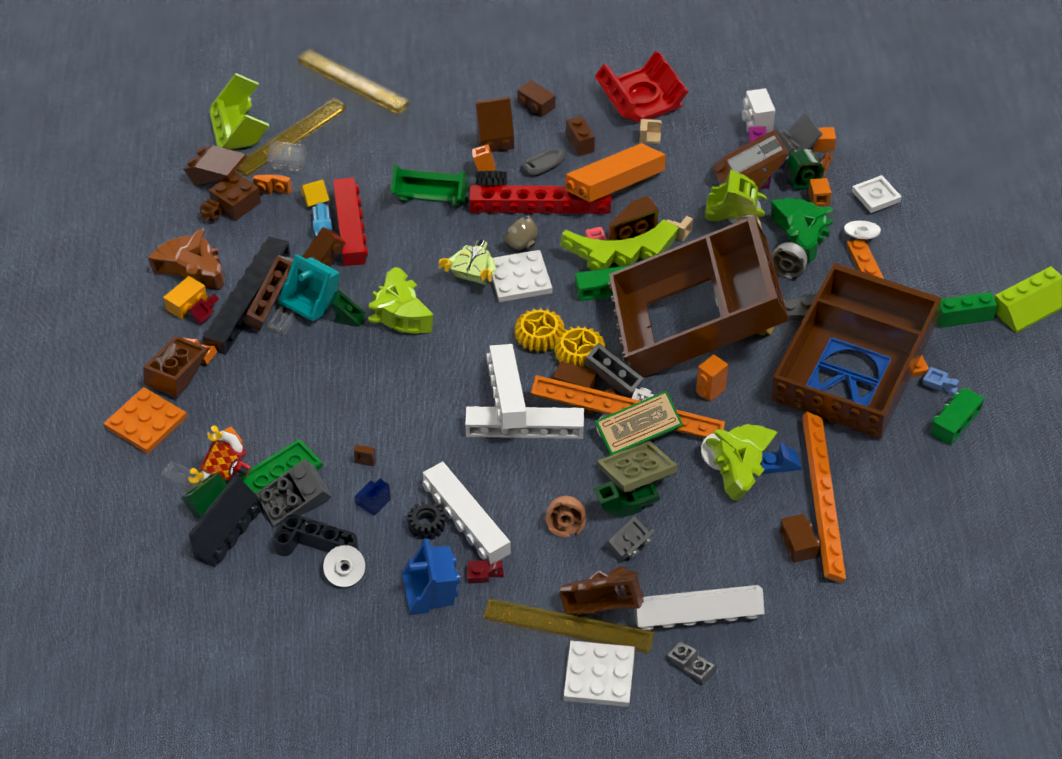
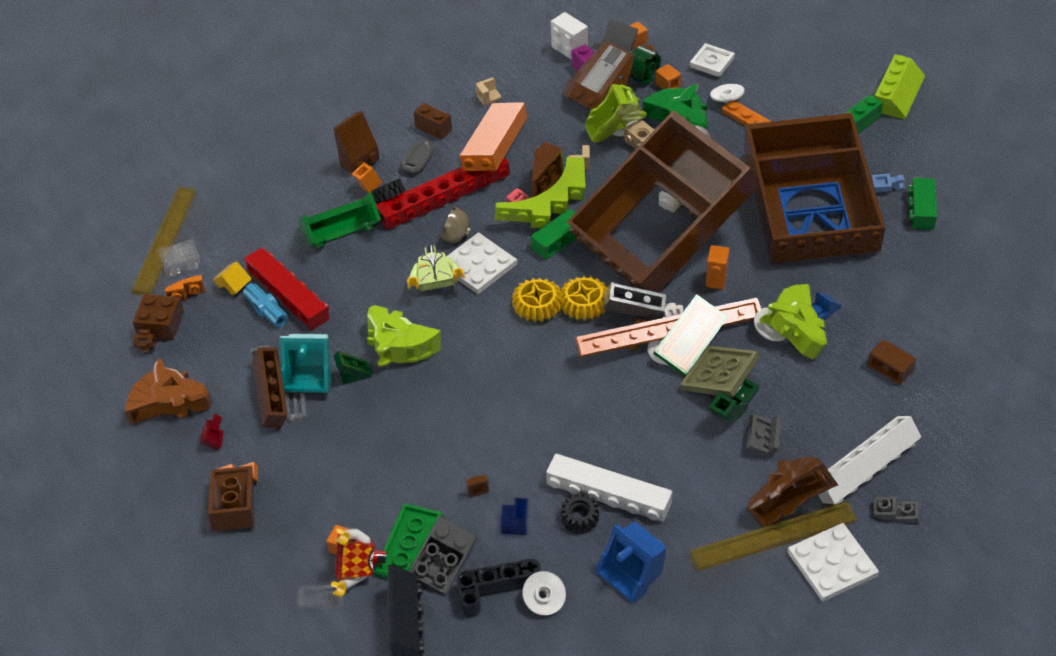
camera: 30 degrees left, 0 degrees up
(145, 420) = (240, 564): orange plate -> none
(184, 296) = (186, 431): light orange brick -> none
(204, 494) = (363, 599): dark green brick -> none
(213, 164) = (117, 297): slope -> none
(228, 116) = (86, 245): lime windscreen -> none
(229, 321) = (245, 400): black brick -> none
(325, 247) = (288, 320): reddish brown brick -> none
(353, 81) = (190, 165): clear yellow tile -> none
(481, 571) = (665, 530): dark red plate -> none
(506, 386) = (557, 359): white brick -> none
(536, 98) = (371, 105): reddish brown brick -> none
(540, 423) = (591, 384): white brick -> none
(565, 516) = (697, 443): nougat cylinder -> none
(575, 375) = (602, 321): reddish brown brick -> none
(644, 91) = (456, 57): red panel -> none
(823, 498) = (881, 319): orange plate -> none

